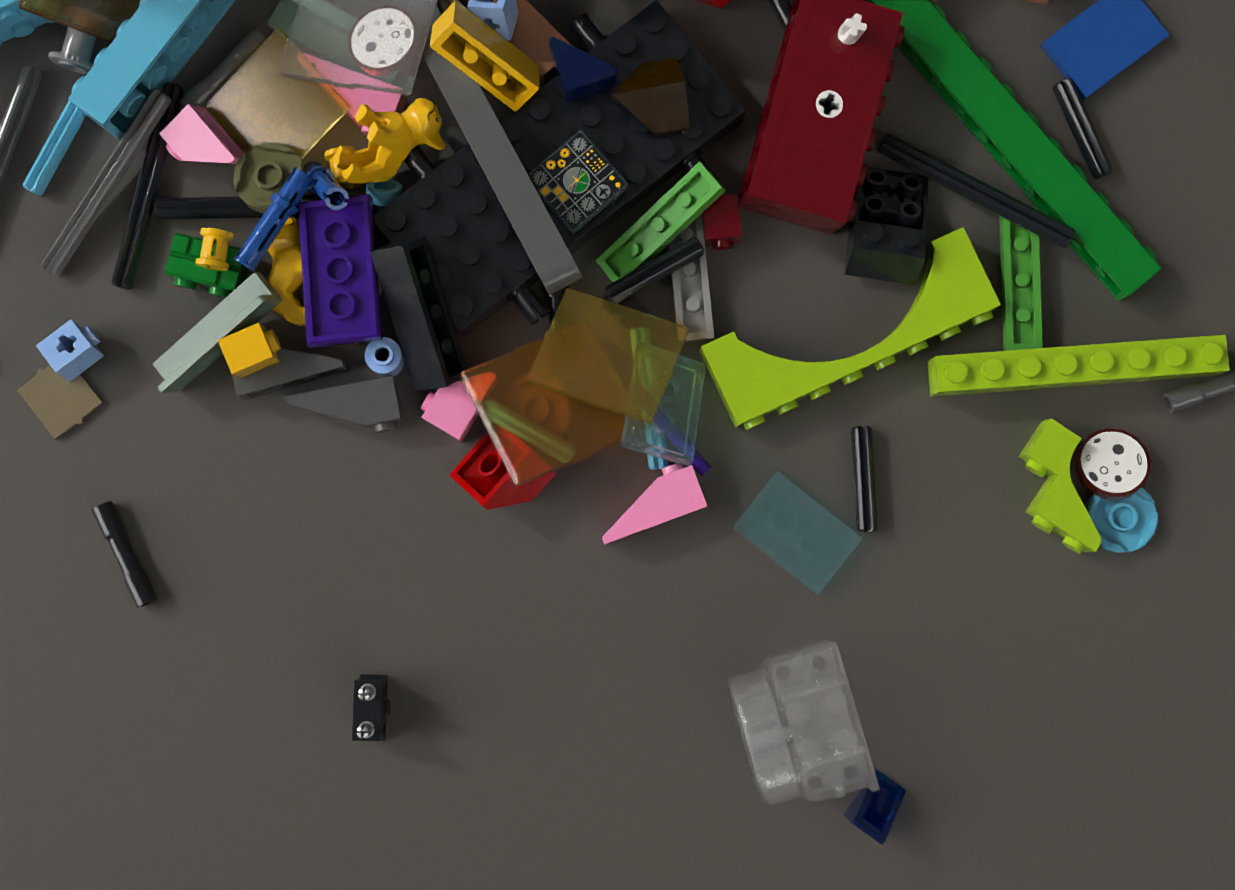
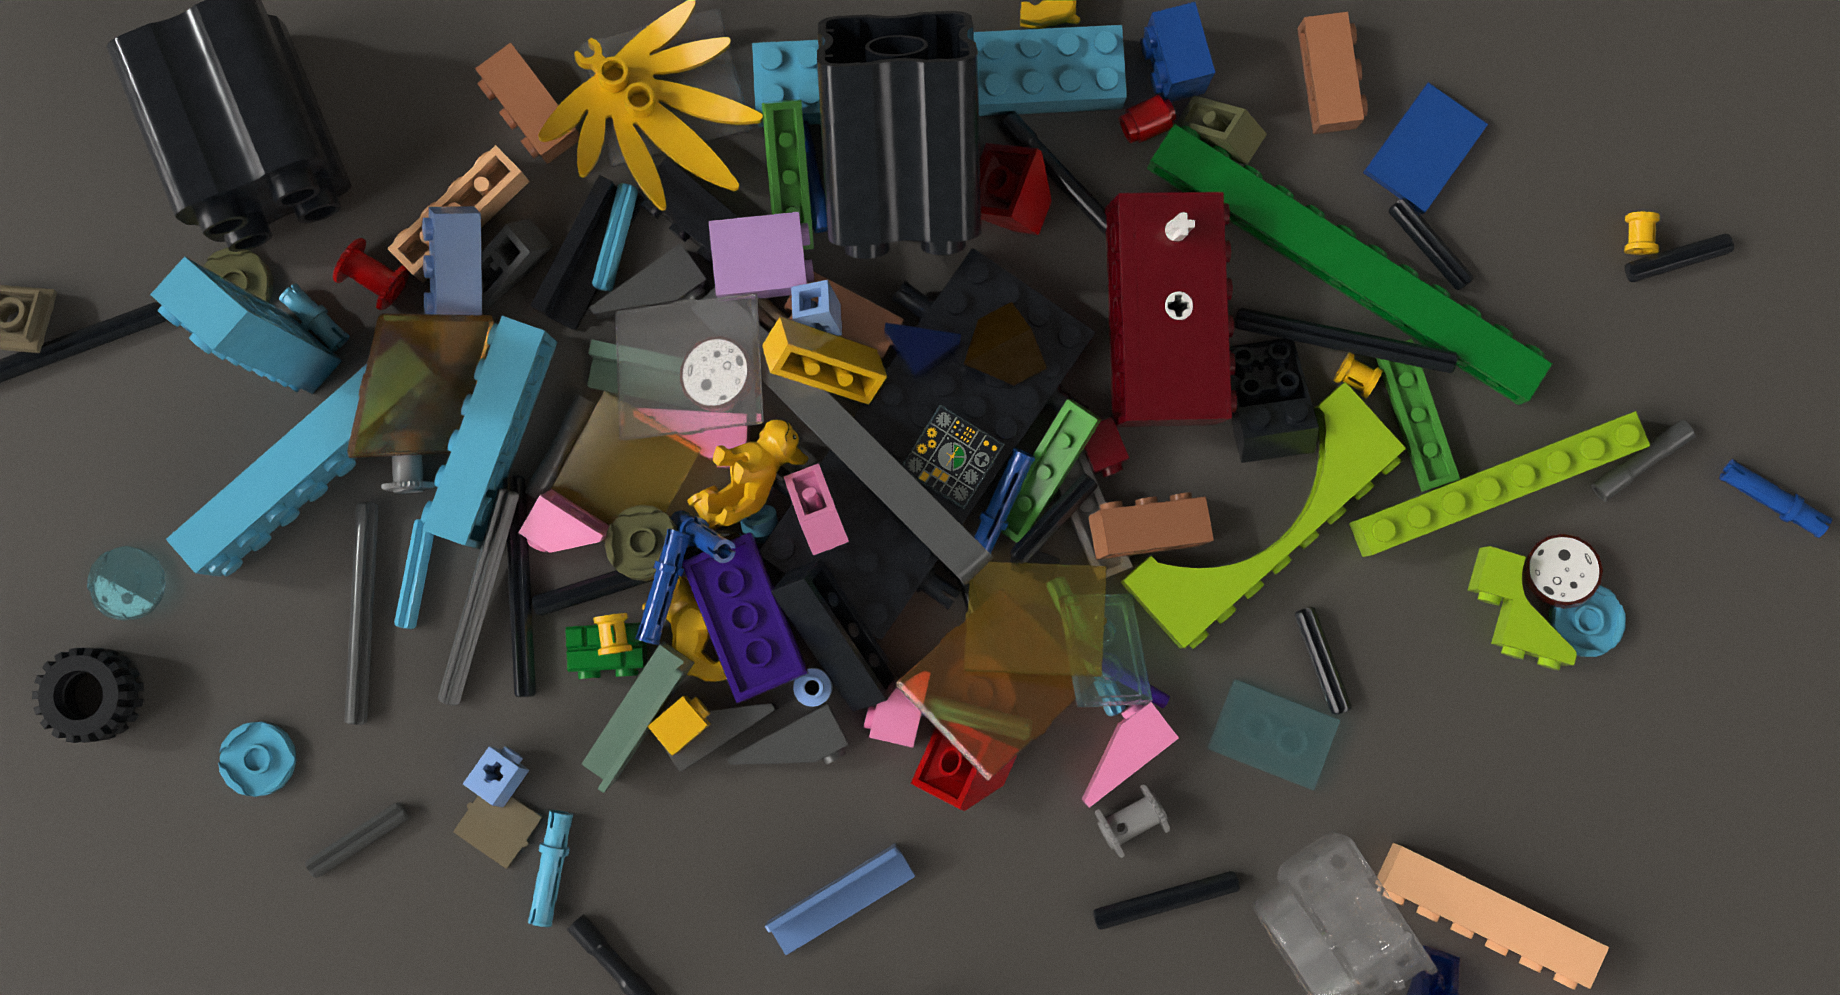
camera: 15 degrees left, 0 degrees up
(97, 444) = (551, 862): none -> medium azure pin
(350, 559) = (840, 899): none -> medium blue panel
(435, 191) = (815, 509): none -> bright pink slope
(639, 208) = (1003, 500): none -> blue pin
(646, 568) = (1137, 819): none -> light grey hose
(650, 653) = (1166, 900): none -> black axle
(741, 304) = (1150, 526): none -> nougat brick
(948, 760) = (1493, 916): none -> light nougat brick
(977, 227) = (1358, 375): none -> yellow bush

